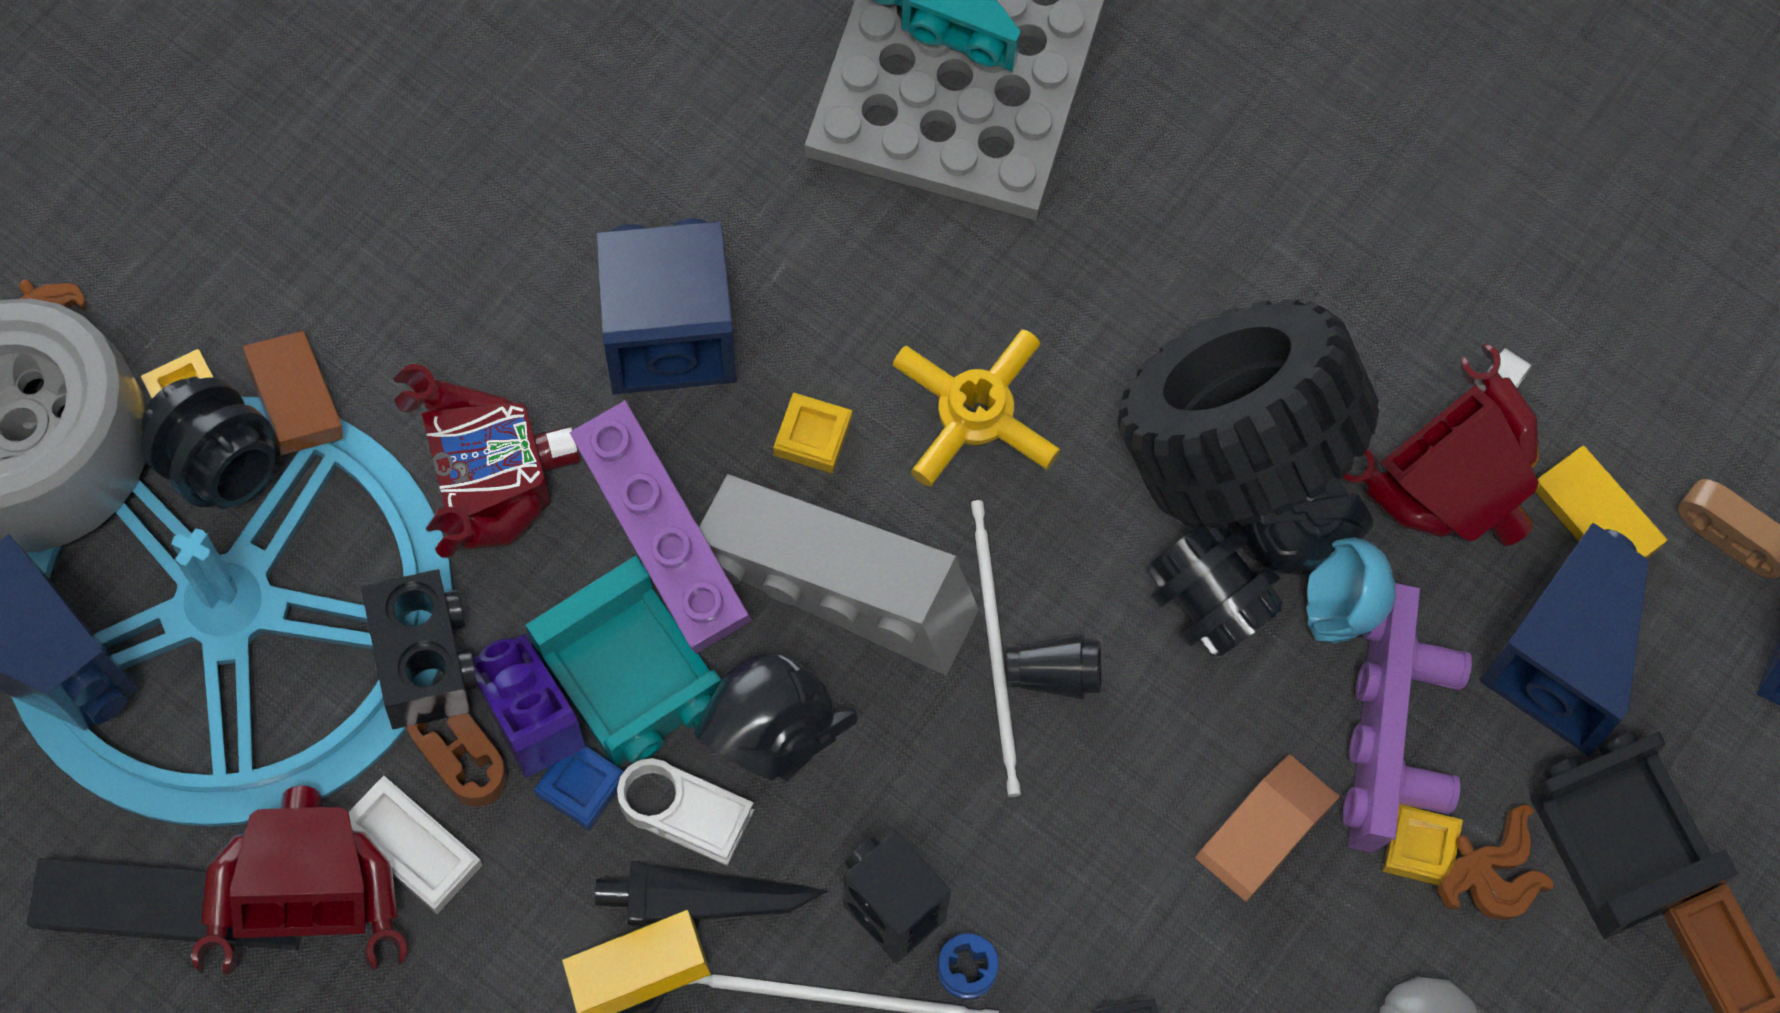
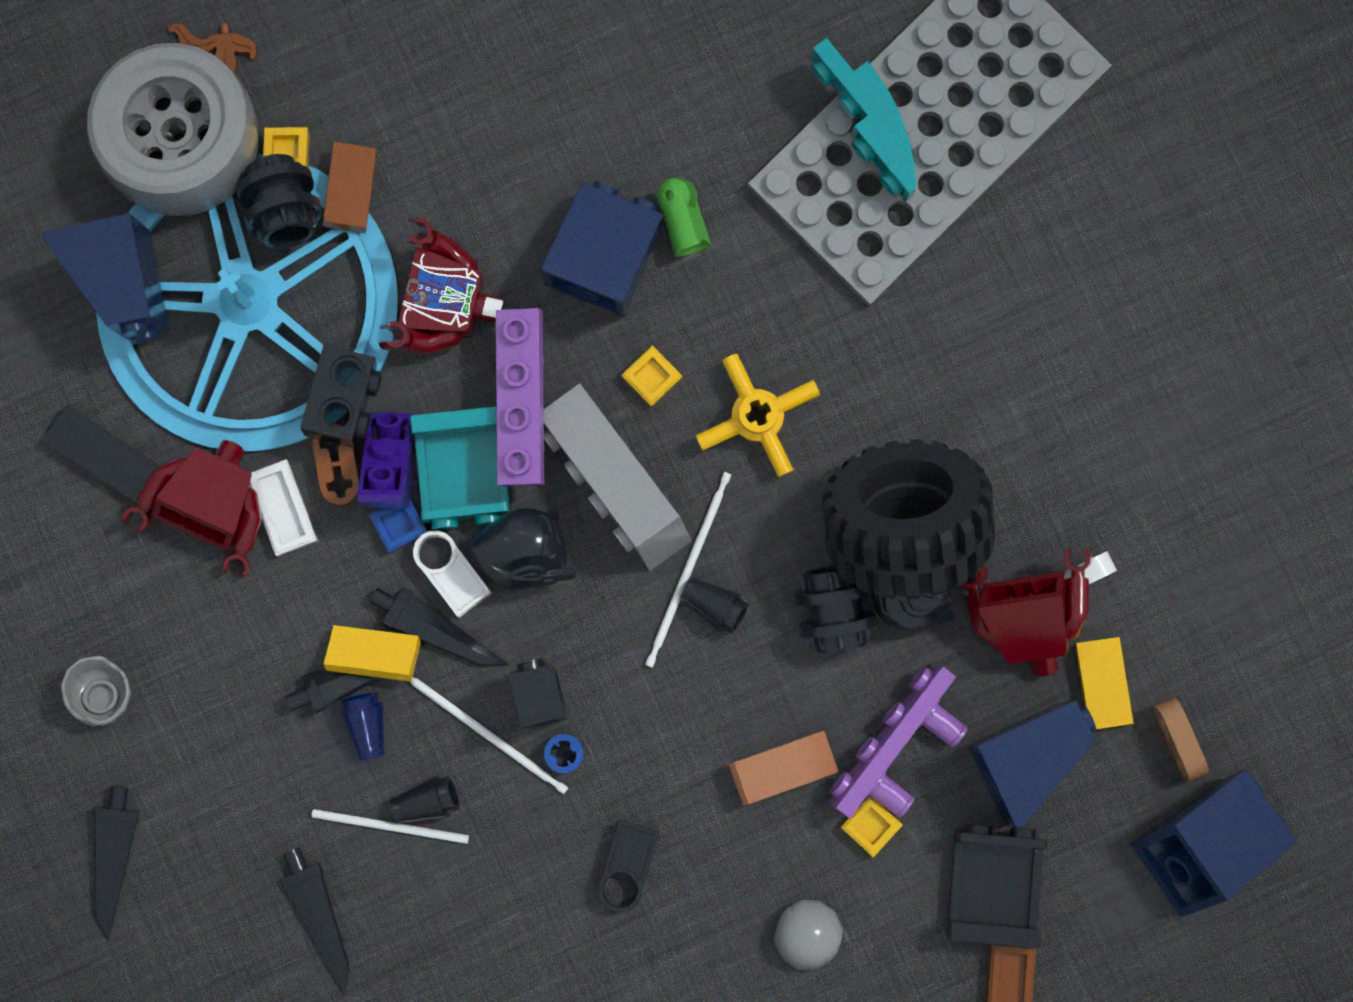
camera: 30 degrees right, 15 degrees up
(745, 223) = (682, 217): none -> bright green piece
(1350, 591) = (912, 657): medium azure hair -> none
(1488, 890) = (892, 874): dark orange piece -> none

